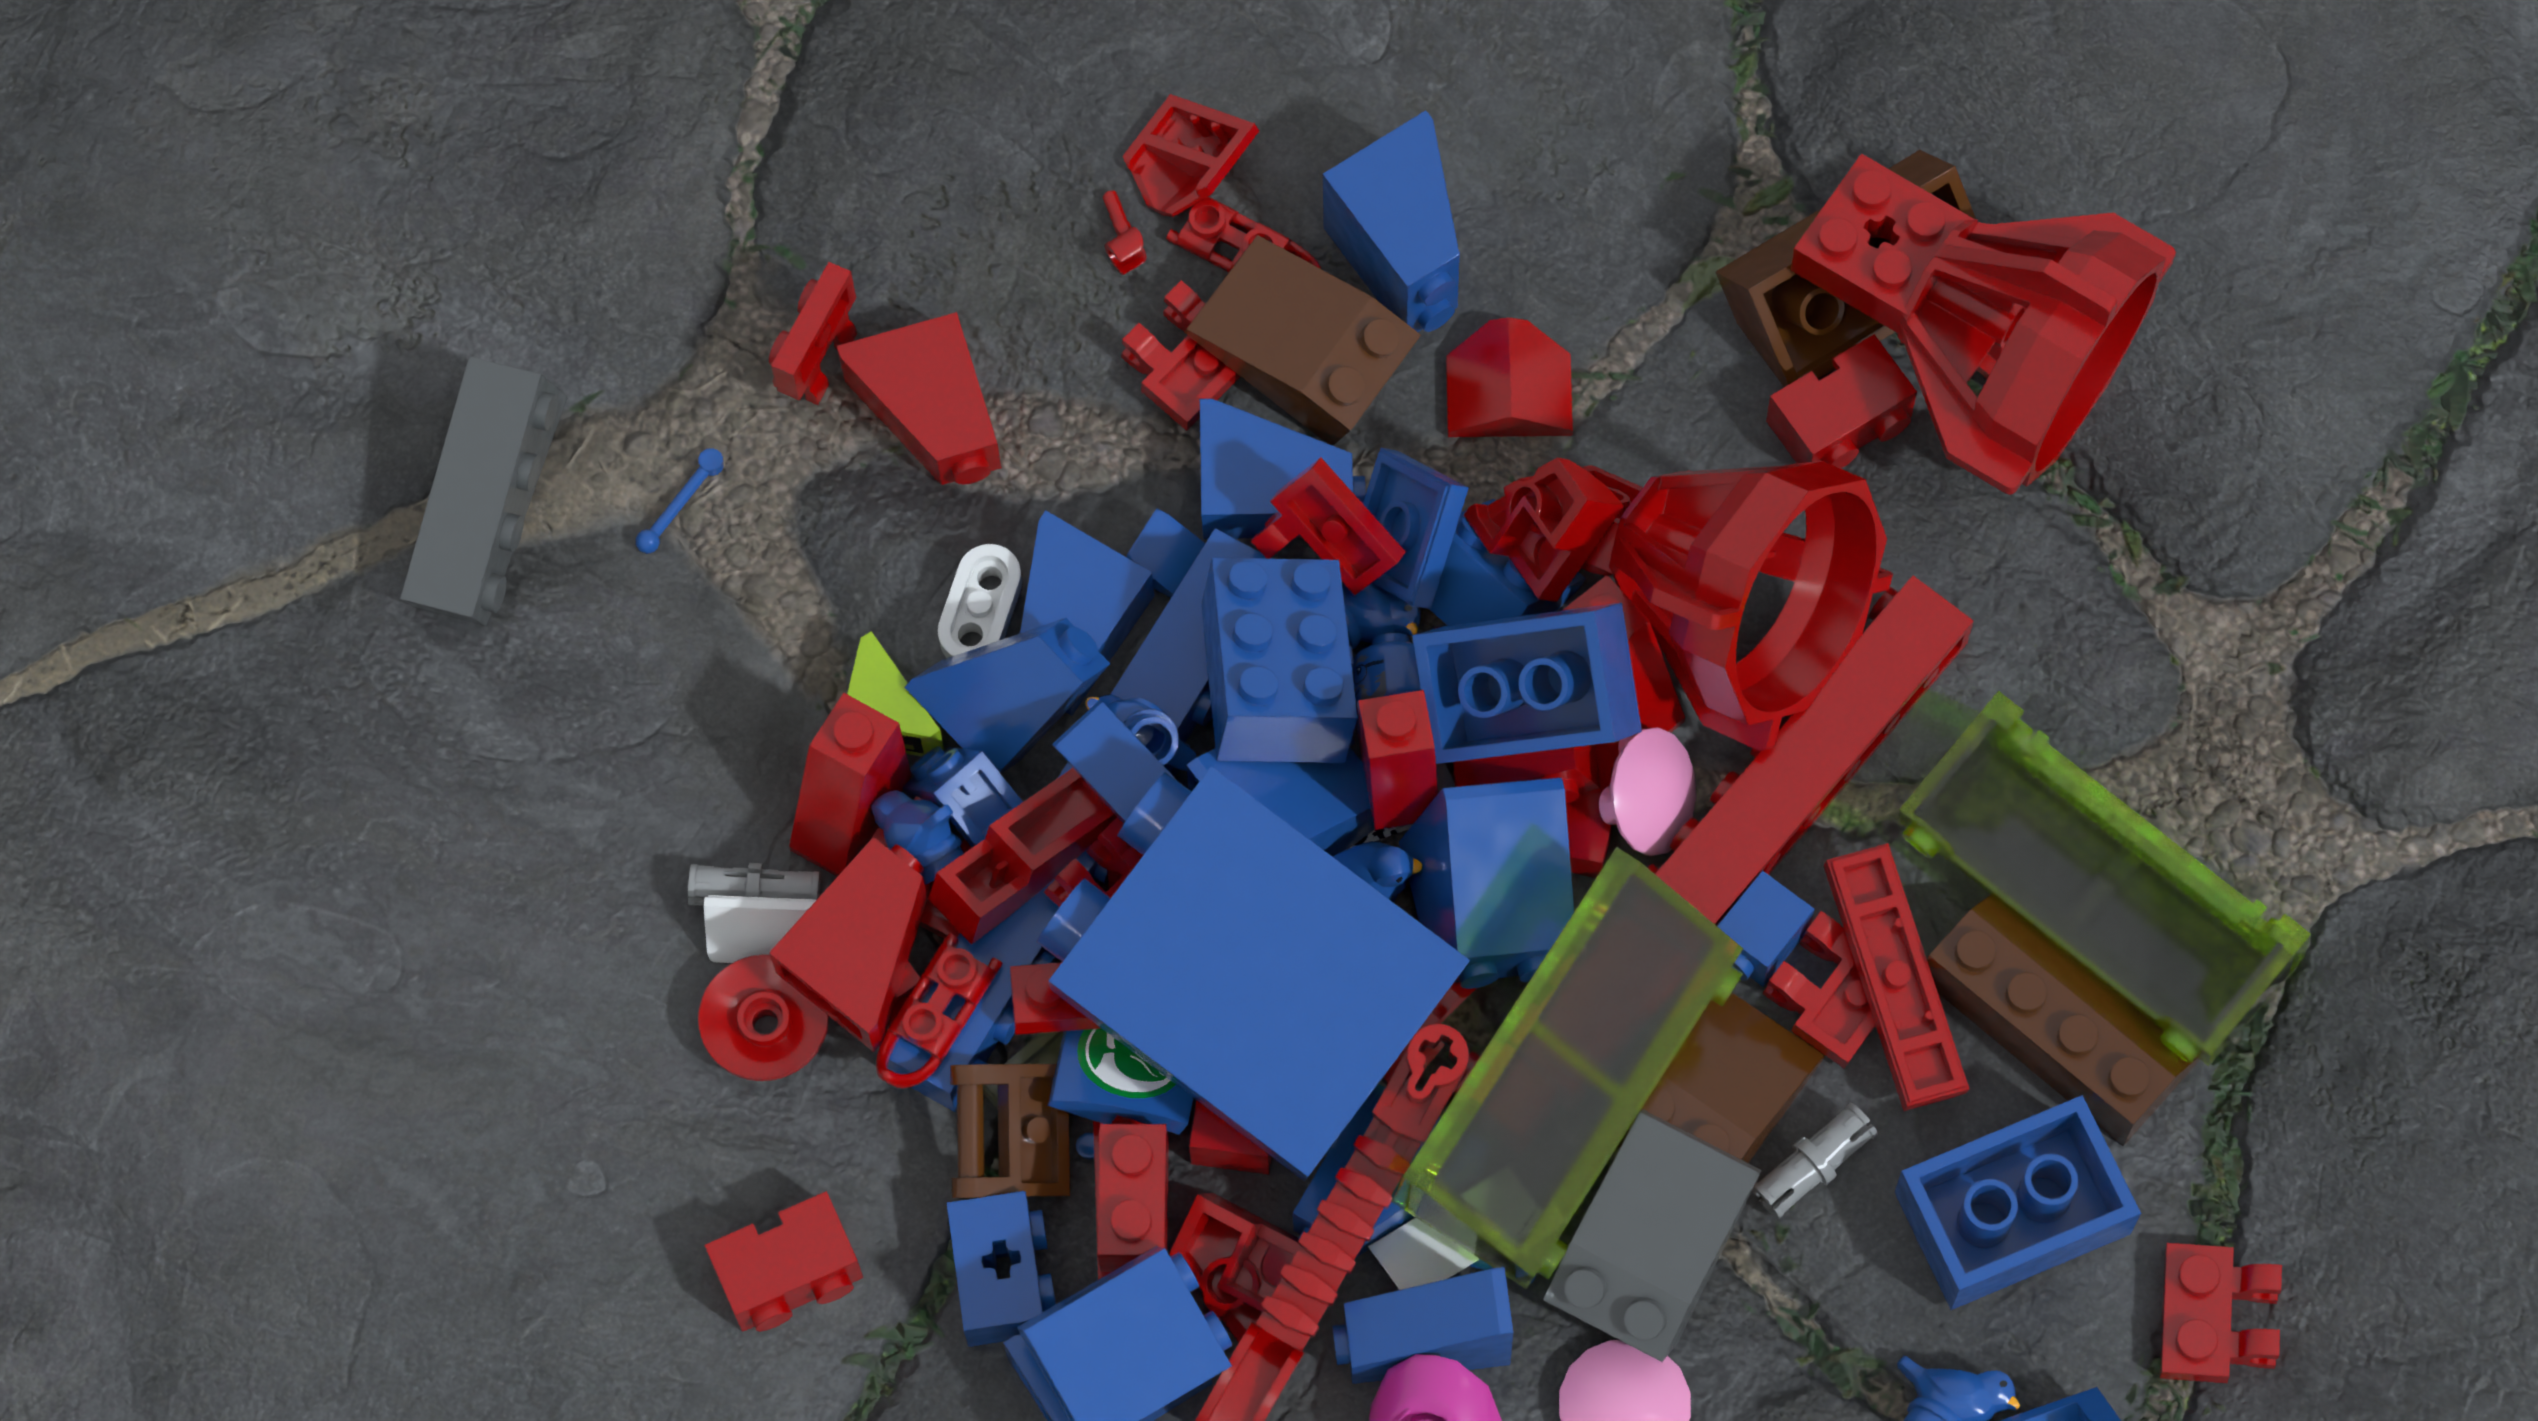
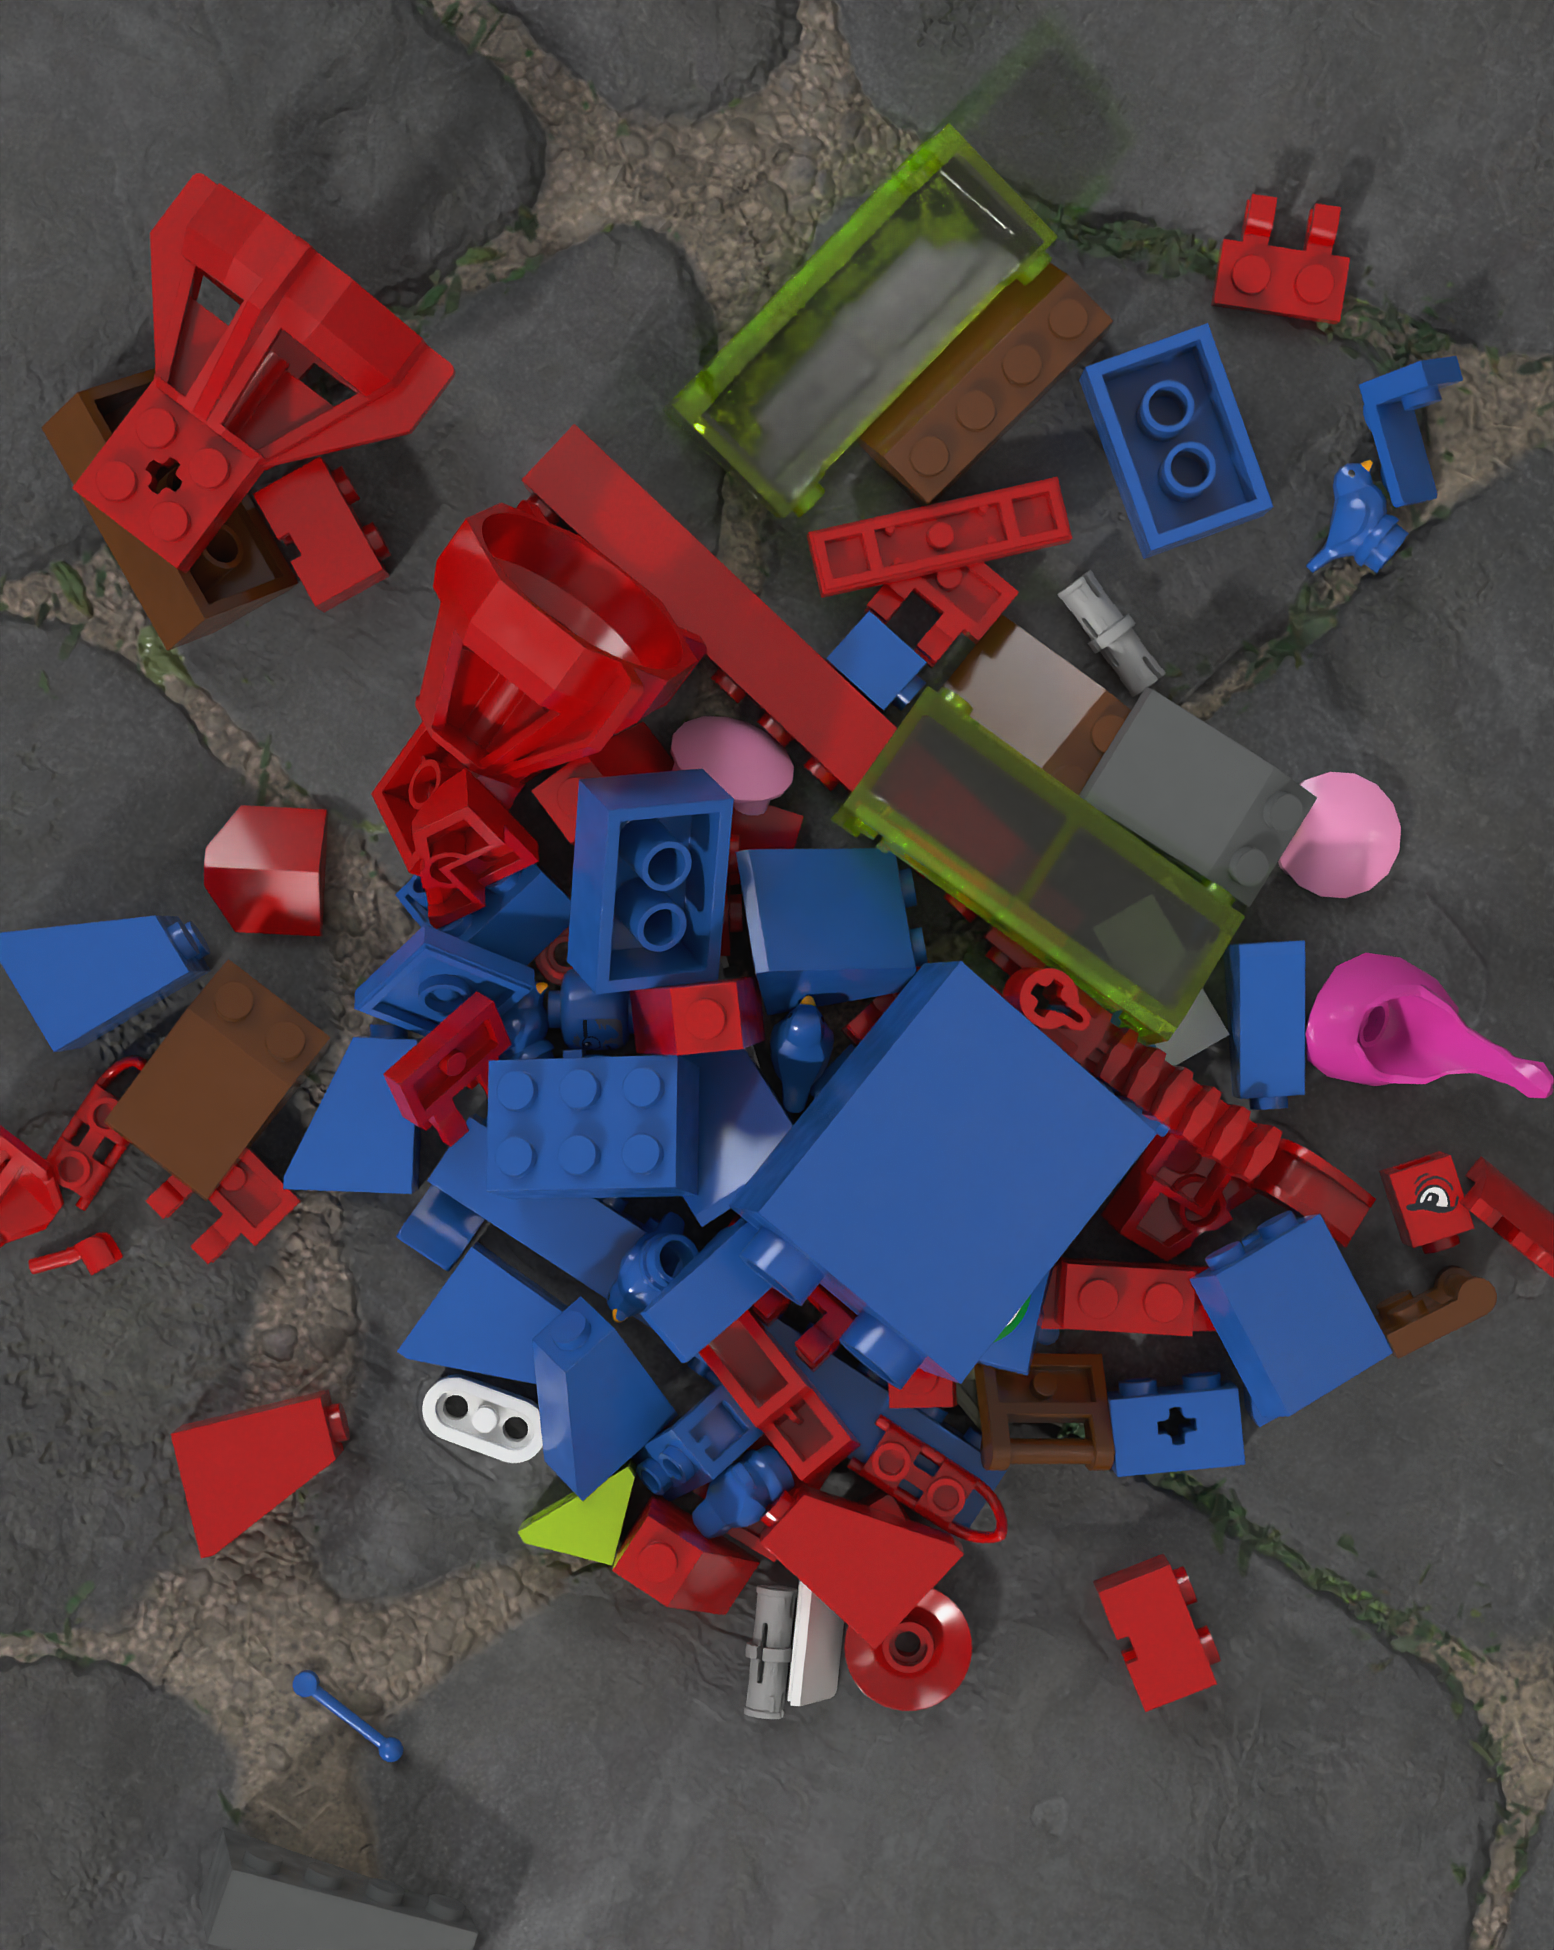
camera: 80 degrees left, 20 degrees up
(821, 320) = (163, 1570): red plate -> none

